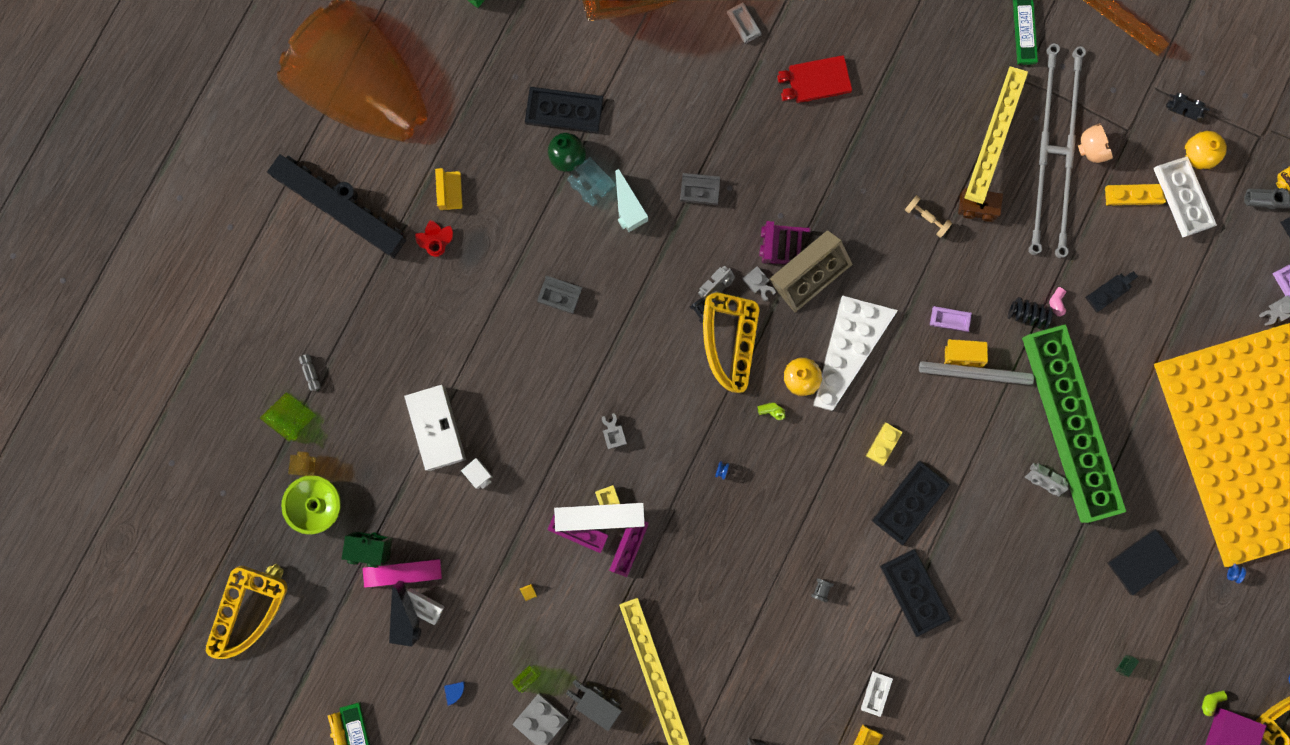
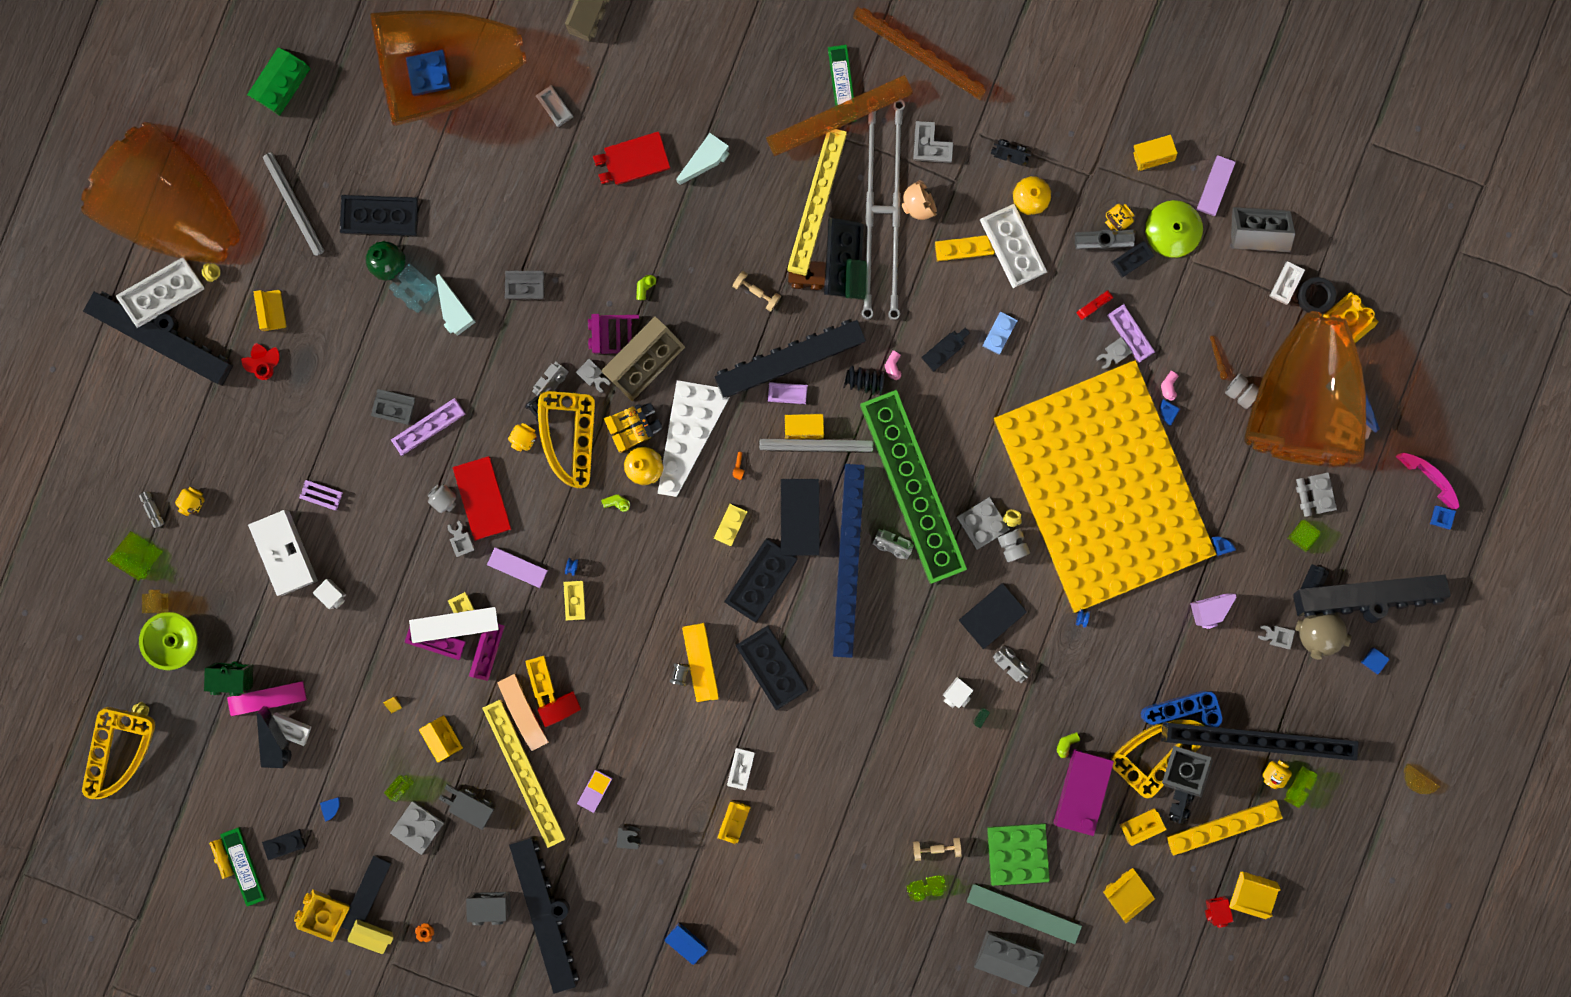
camera: 10 degrees left, 5 degrees up
(343, 161) = (160, 292): none -> white tile
(348, 368) = (190, 501): none -> yellow head
(395, 147) = (211, 272): none -> light yellow plate
(402, 725) = (283, 844): none -> black plate
(464, 368) = (305, 490): none -> lavender tile
(482, 91) = (293, 204): none -> light grey axle
(573, 632) = (440, 738): none -> yellow panel
(592, 317) = (428, 426): none -> lavender tile
(599, 389) = (442, 498): none -> light grey head
(638, 393) = (482, 498): none -> red tile
(659, 613) = (522, 712): none -> light nougat slope
(667, 465) = (517, 567): none -> lavender tile
(680, 582) = (540, 679): none -> yellow hinge
(684, 337) = (522, 437): none -> yellow head
(697, 614) = (559, 709): none -> red slope
(721, 504) = (574, 600): none -> light yellow plate
(724, 701) = (594, 791): none -> lavender tile
(800, 331) = (638, 424): none -> hips
(816, 200) = (643, 285): none -> lime arm
(844, 578) = (700, 662): none -> yellow panel
(889, 84) = (705, 158): none -> light aqua slope
(896, 393) = (737, 472): none -> orange hand
(955, 443) = (799, 517): none -> black tile
(957, 285) = (790, 359): none -> black brick
(1002, 492) = (848, 560): none -> dark blue brick
(1017, 192) = (843, 243): none -> black tile
(1022, 55) = (839, 115): none -> clear orange plate
(1028, 213) = (856, 279): none -> clear green tile
(1104, 638) = (957, 694): none -> white brick
(1105, 96) = (926, 148): none -> light grey plate
(1138, 467) = (983, 523): none -> light grey plate
(1156, 607) = (1019, 669): none -> light grey hinge
(1165, 280) = (999, 333): none -> light blue plate
(1170, 465) = (1012, 518): none -> light yellow plate
(1171, 492) = (1013, 545): none -> light grey wheel
(1263, 261) = (1094, 305): none -> red piece

